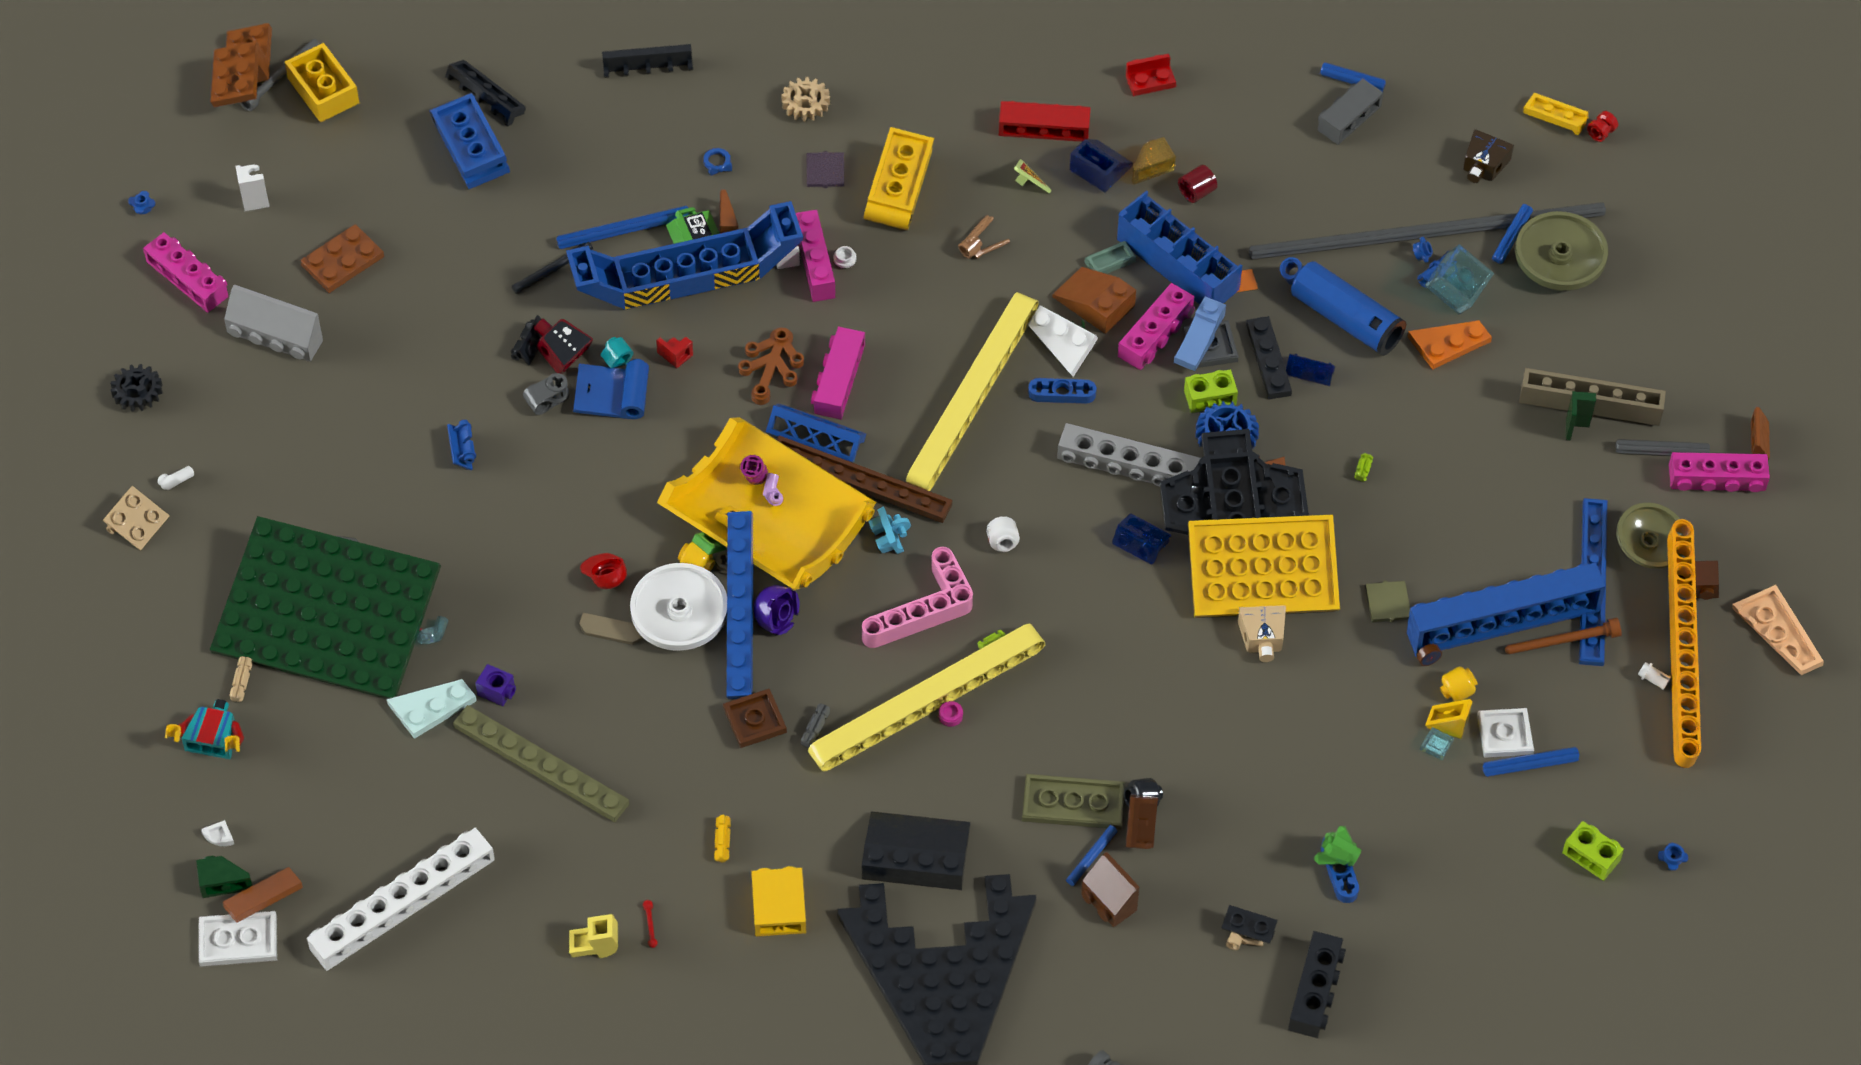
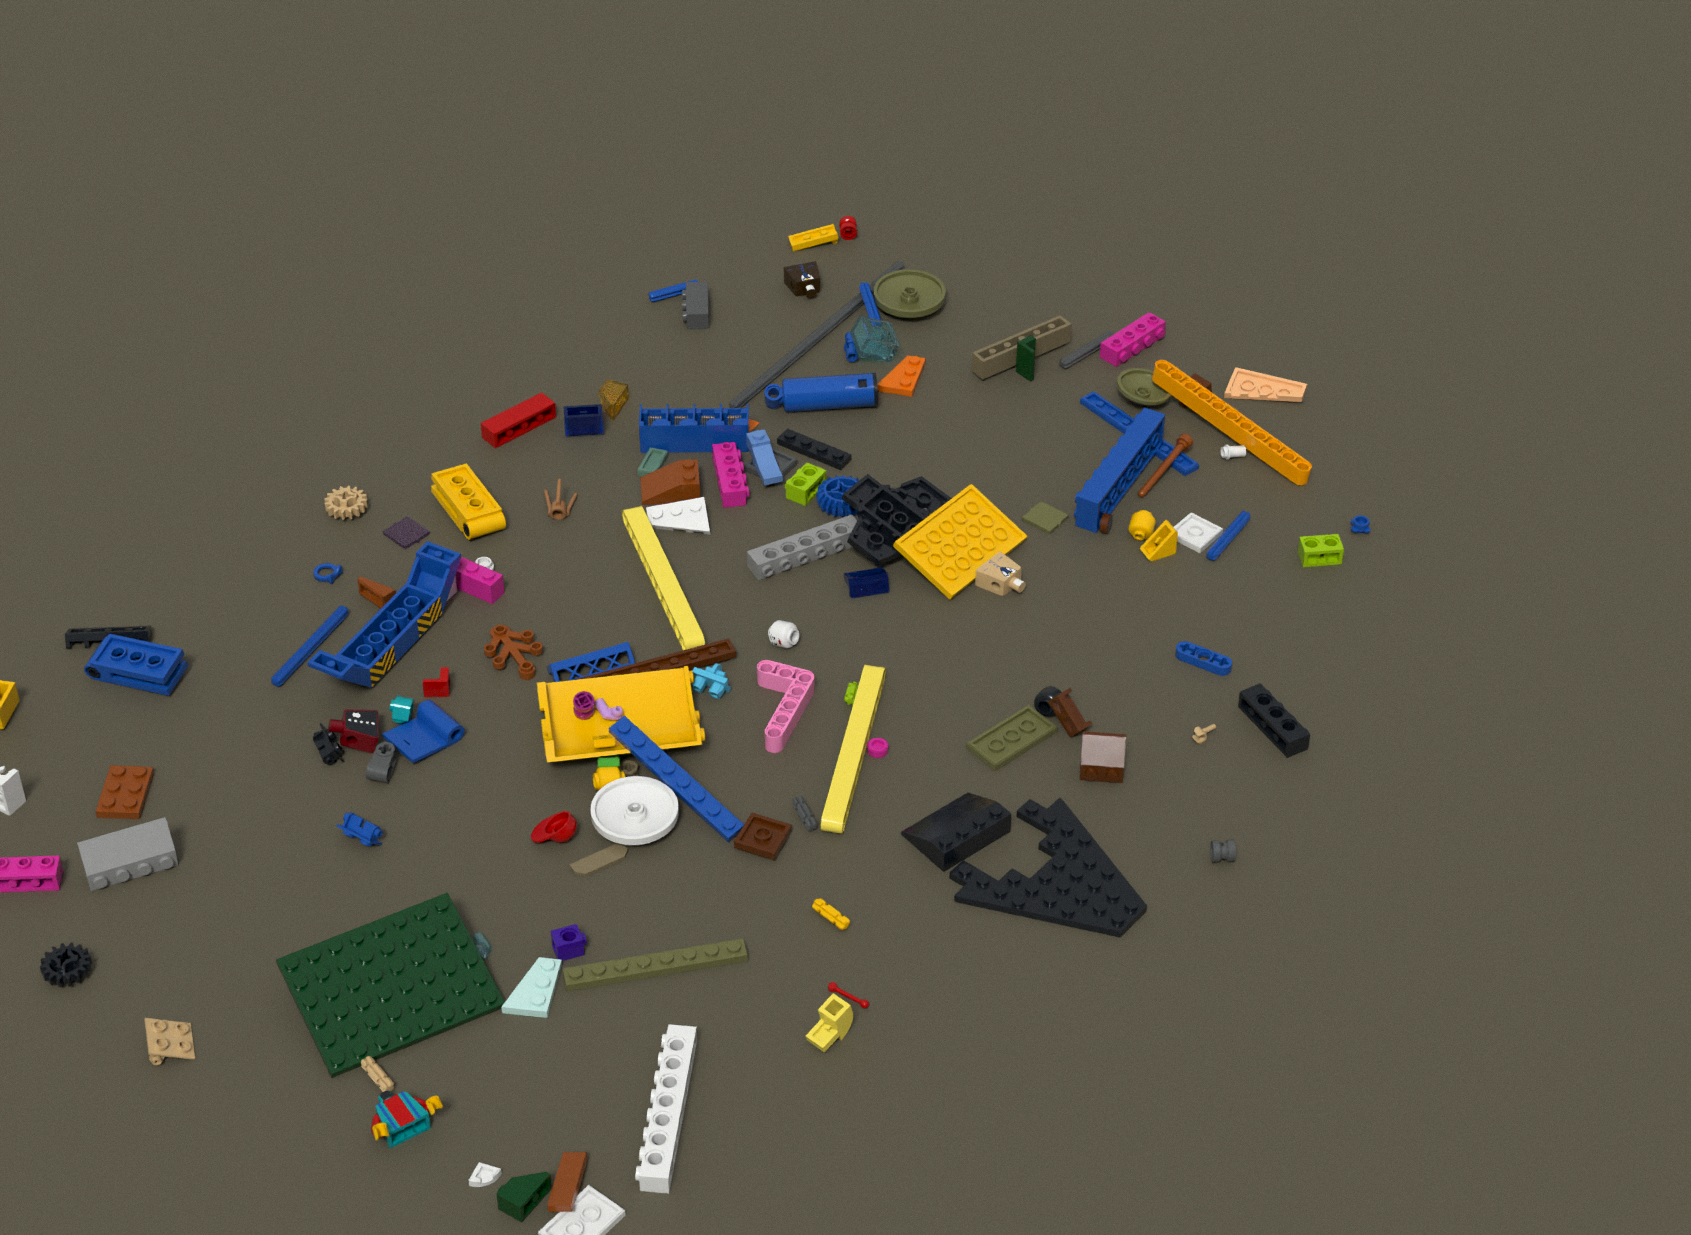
camera: 45 degrees left, 15 degrees down
(169, 481) = (168, 997): white arm -> none
(545, 271) = (288, 699): black bar -> none
(647, 58) = (205, 548): black hinge -> none
(691, 226) = (358, 614): bright green piece -> none
(776, 608) = (698, 766): dark purple cylinder -> none
(778, 901) = (914, 917): yellow brick -> none
(839, 373) = (565, 623): dark pink brick -> none
(1027, 173) = (544, 452): yellowish green piece -> none
(1054, 397) = (705, 550): blue beam -> none
(1091, 855) = (1060, 756): blue bar -> none
(1150, 75) = (551, 361): red bracket -> none
(1197, 183) = (657, 391): dark red piece -> none
(1249, 924) = (1198, 718): black hinge -> none
(1310, 369) = (847, 437): clear blue hinge -> none
(1338, 848) = (1196, 642): bright green rock -> none
(1363, 467) = (942, 464): lime piece -> none
(1422, 250) = (831, 342): blue plate -> none
(1437, 743) = (1168, 563): clear light blue tile -> none
(1760, 433) = (1125, 309): dark orange slope -> none

